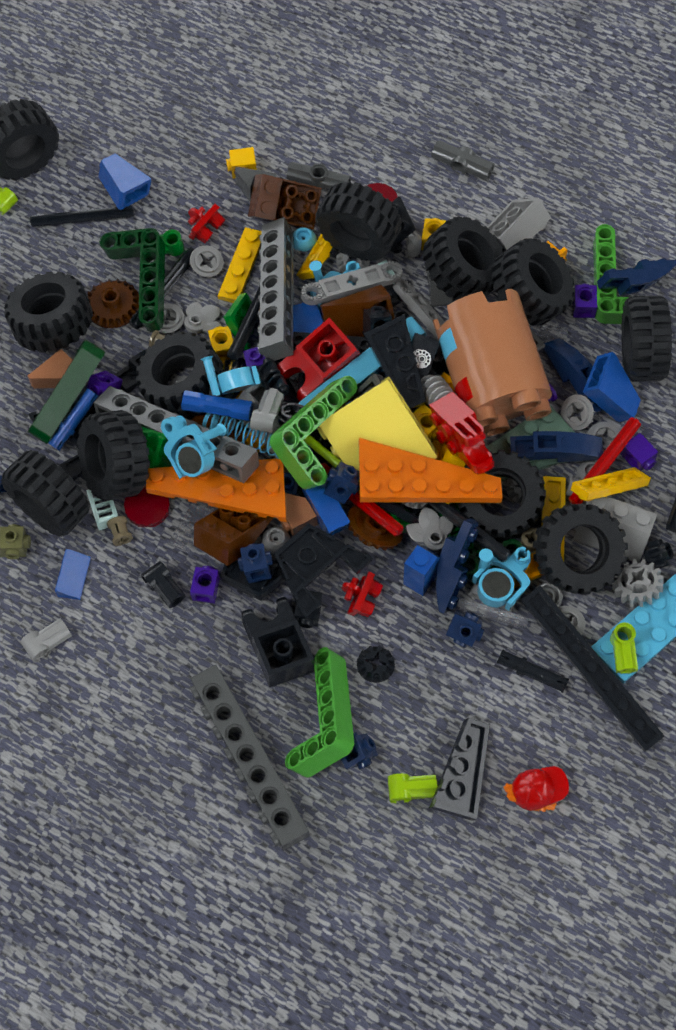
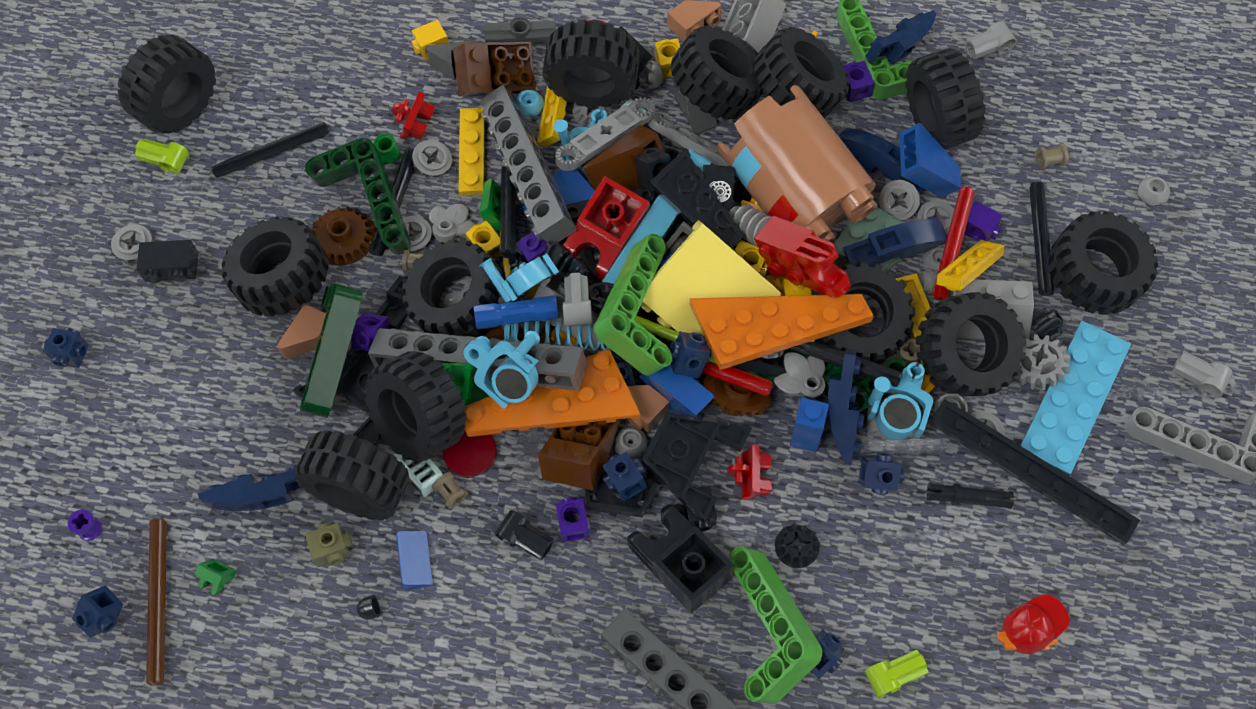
camera: 20 degrees left, 0 degrees up
(24, 600) = (368, 608): none -> black hinge
(41, 642) = (408, 651): light grey piece -> none
(73, 419) = (349, 380): blue pin -> none
(123, 181) = (304, 97): slope -> none
(463, 774) = (947, 644): wing -> none
(469, 205) = (692, 15): none -> nougat slope
(624, 650) = (1062, 440): lime piece -> none

